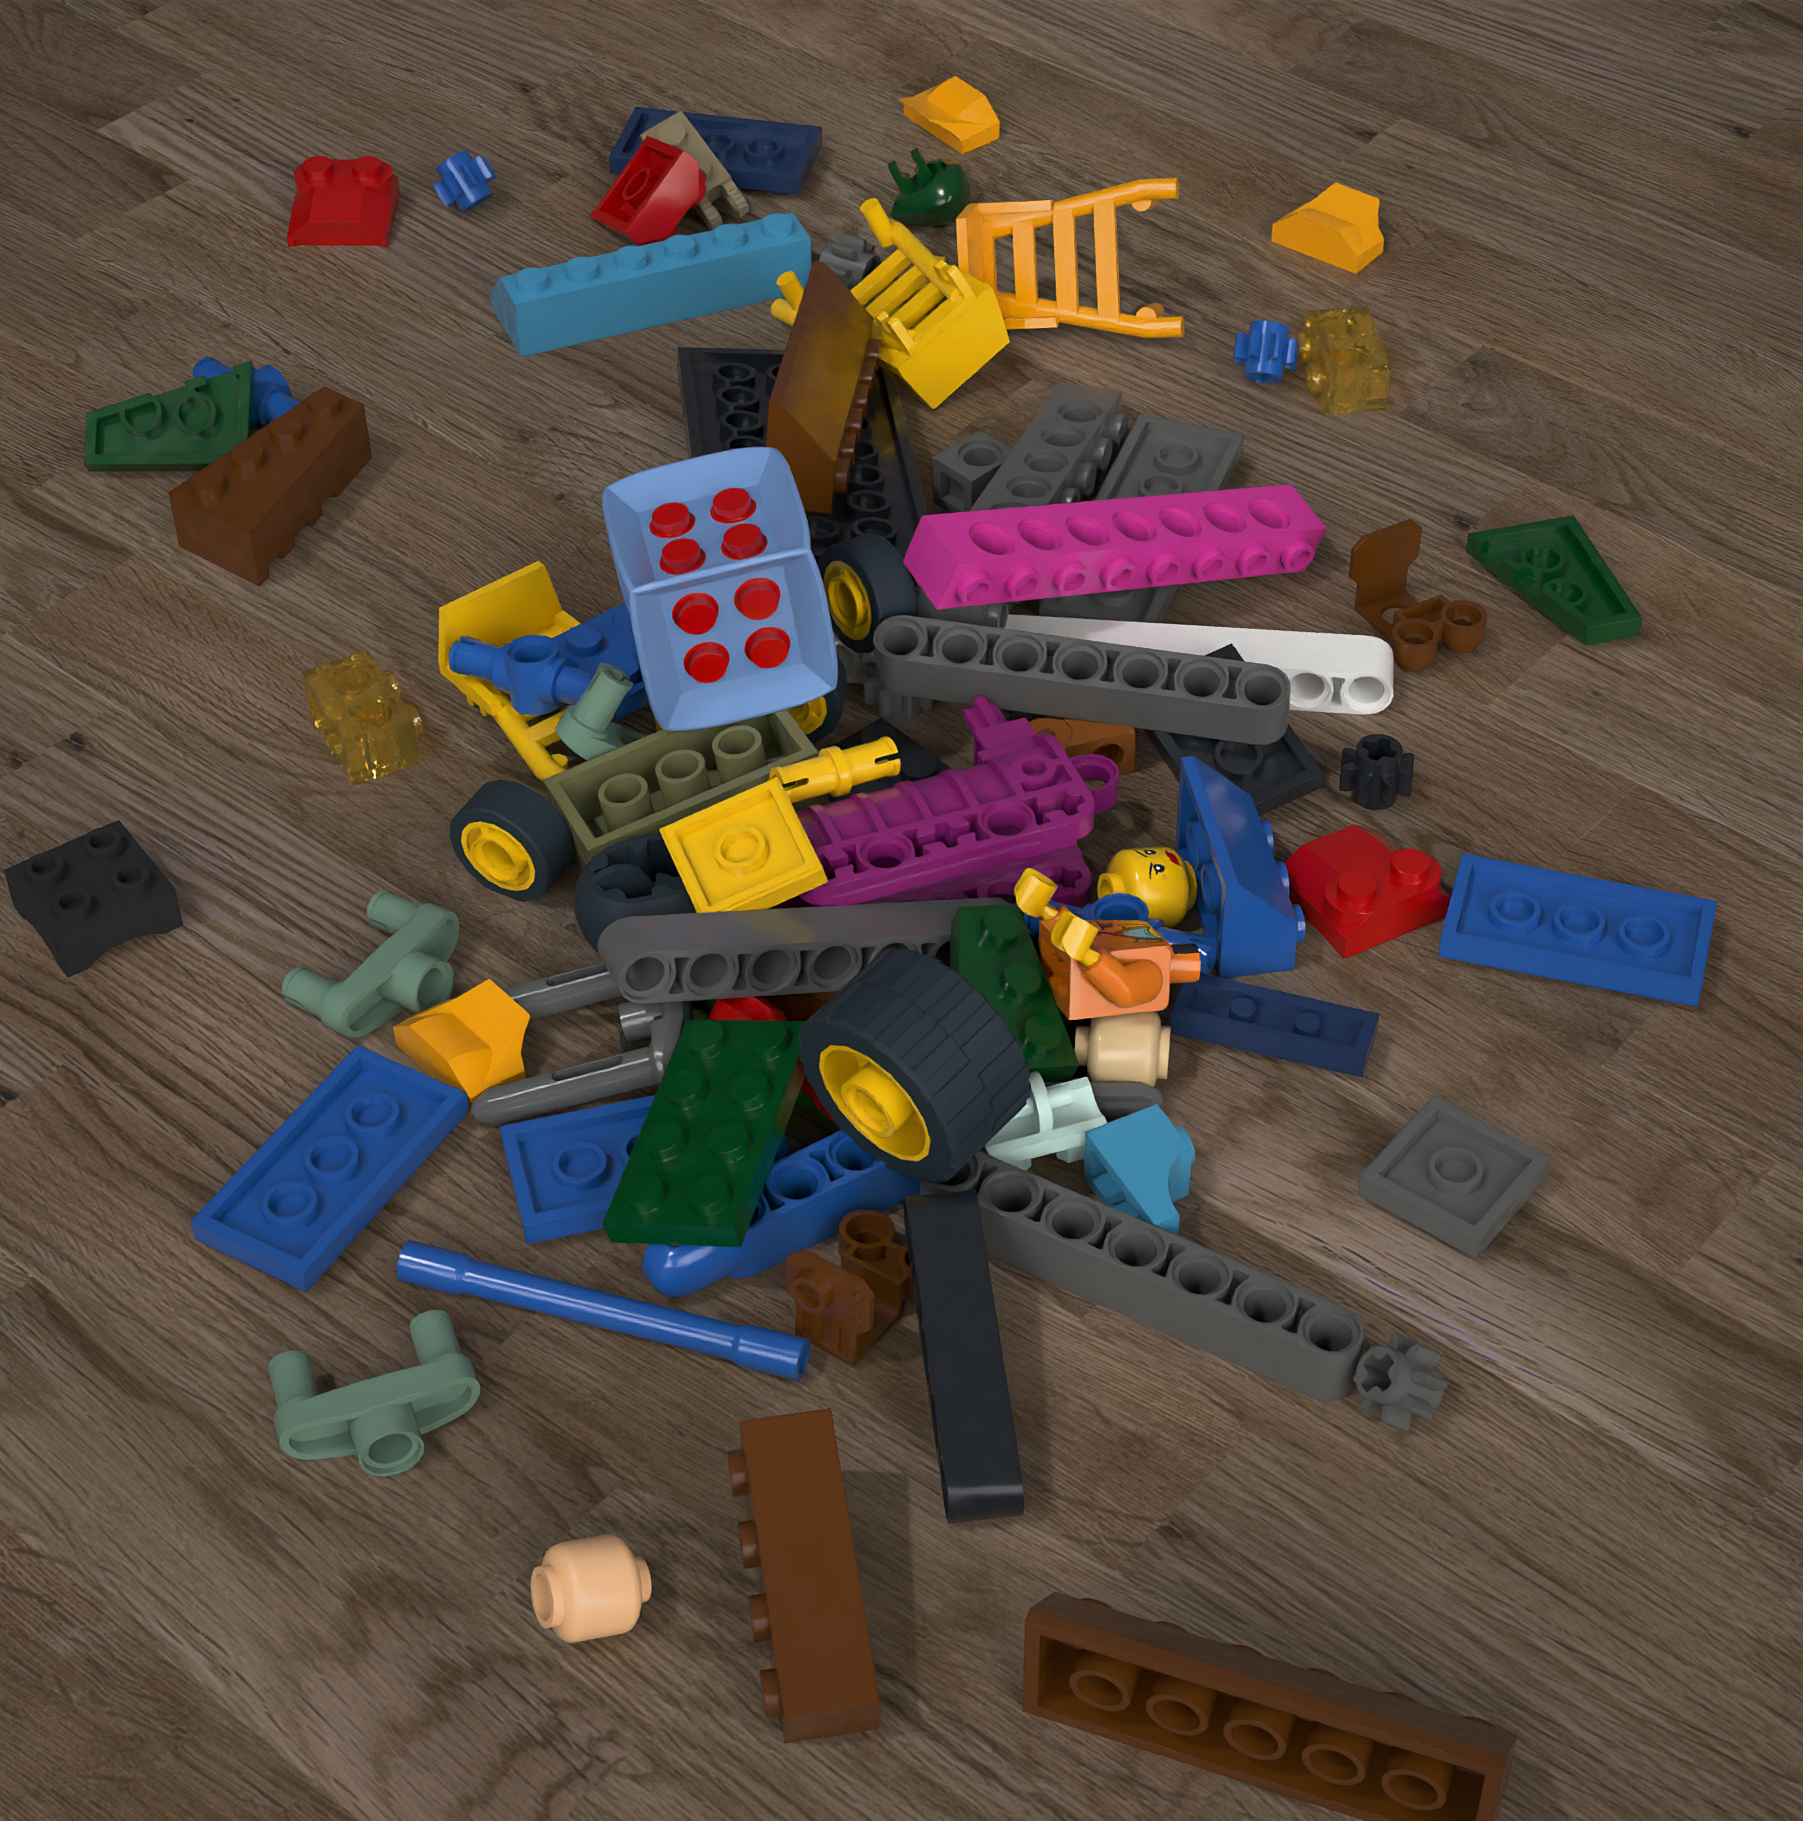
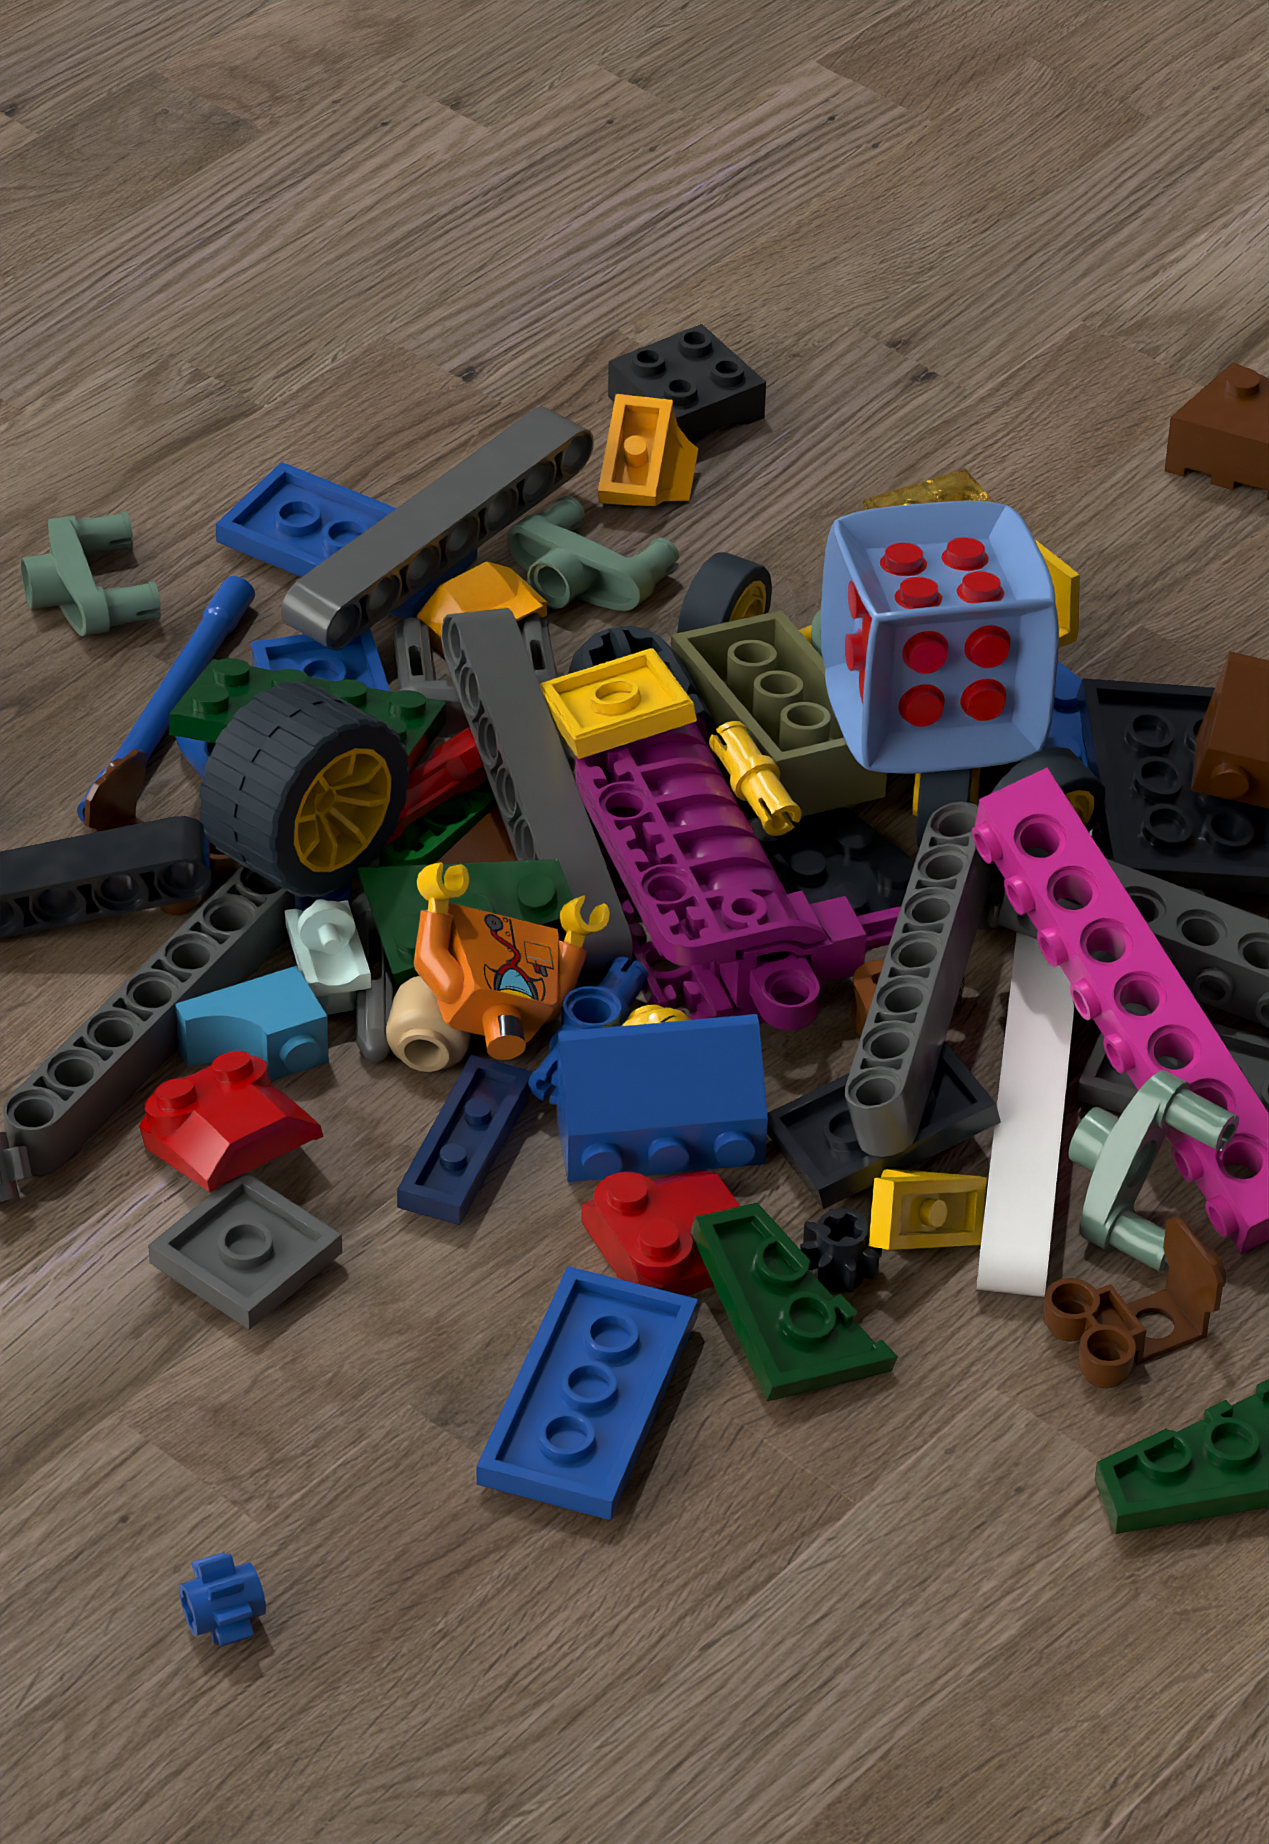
camera: 90 degrees right, 0 degrees up
(219, 924) = (646, 454): none -> light orange slope
(368, 1056) = (436, 528): none -> dark grey beam
(1266, 579) = (1123, 1152): none -> sand green connector
(1301, 1192) = (224, 1121): none -> red slope
(1331, 710) = (926, 1210): none -> yellow slope
(1458, 804) = (781, 1313): none -> dark green wing

